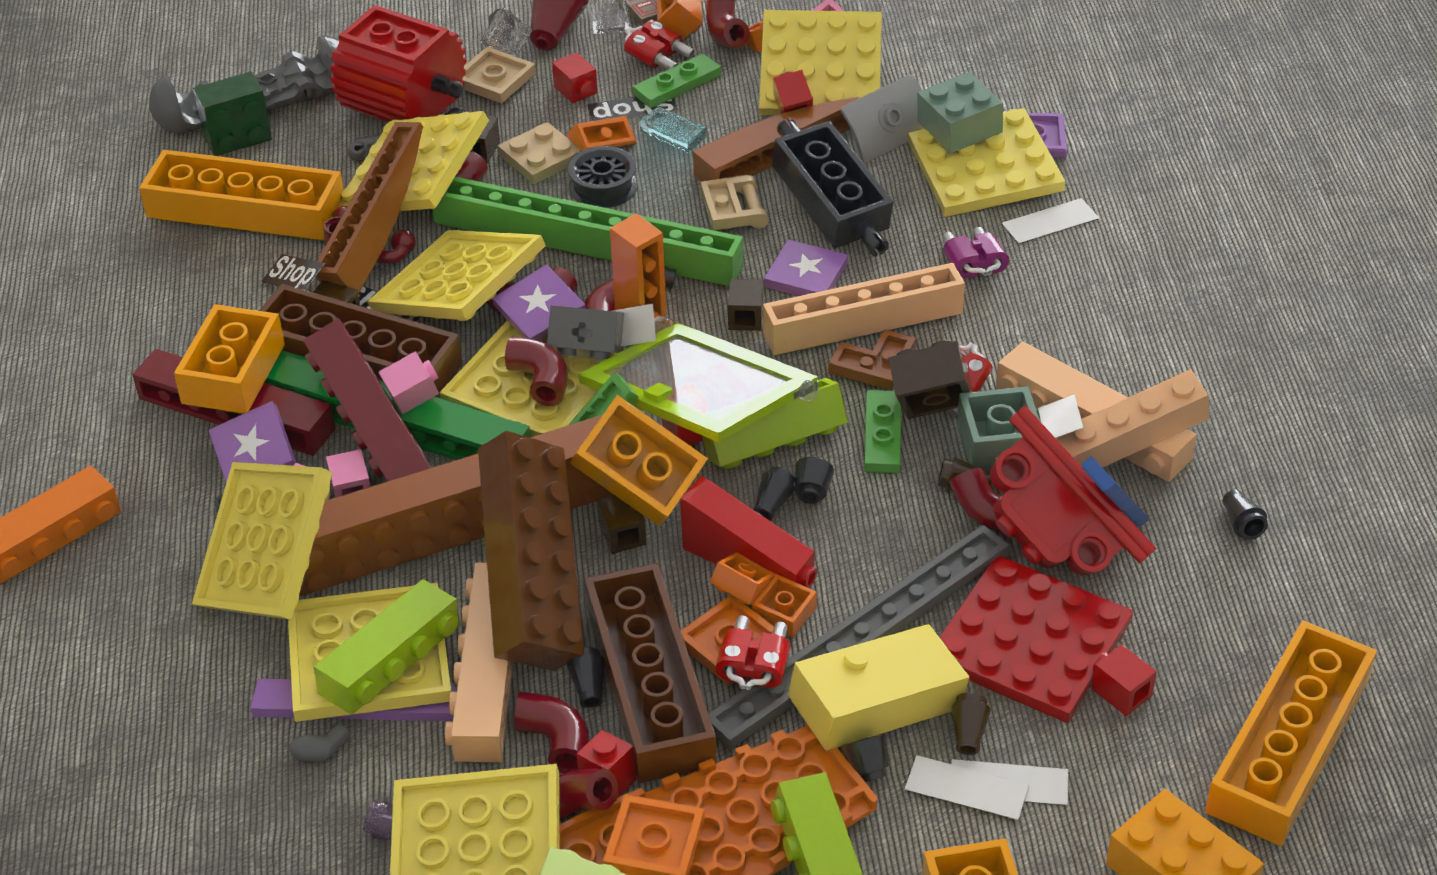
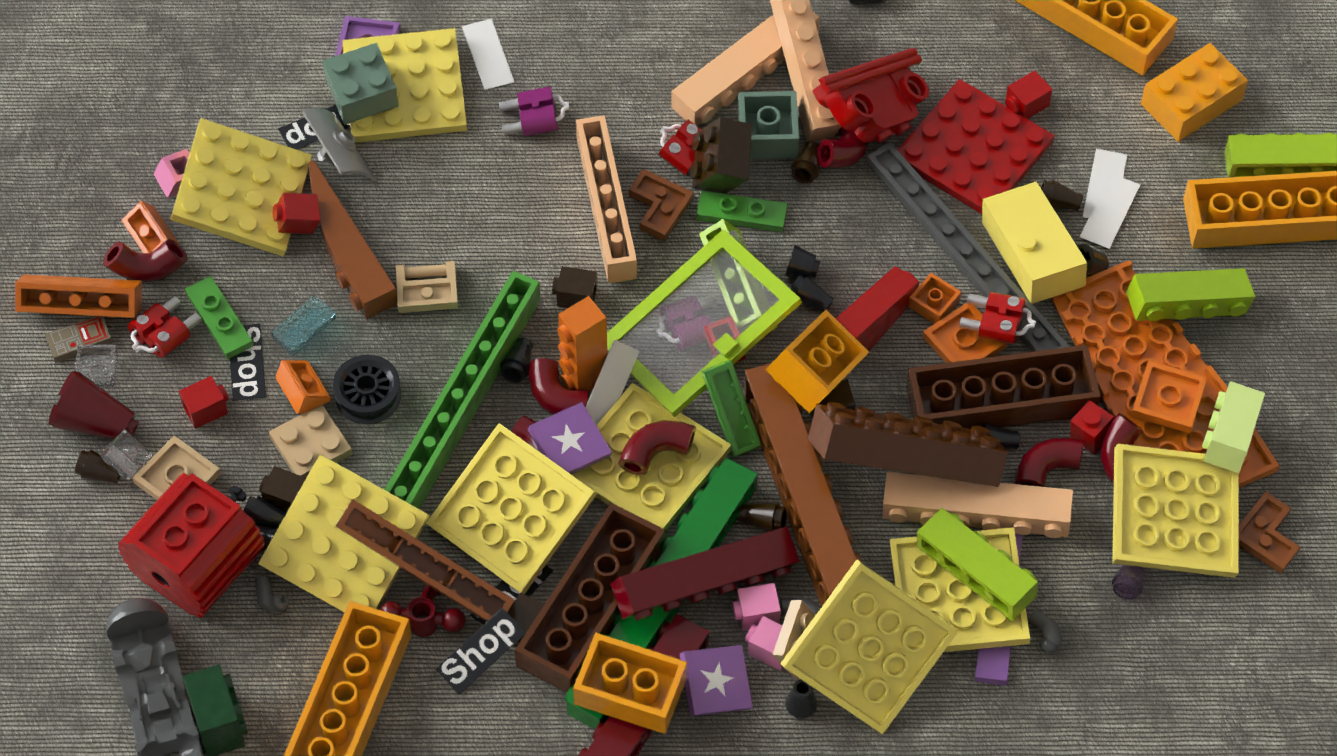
camera: 85 degrees left, 15 degrees up
(410, 382) = (680, 535): bright pink brick -> none
(567, 322) = (620, 401): dark grey brick -> none
(741, 578) = (914, 318): orange piece -> none
(805, 269) = (529, 242): medium lavender tile -> none
(833, 185) = (436, 198): black brick -> none
(1061, 416) = (783, 75): white sticker -> none
(1114, 491) = (878, 52): blue tile -> none

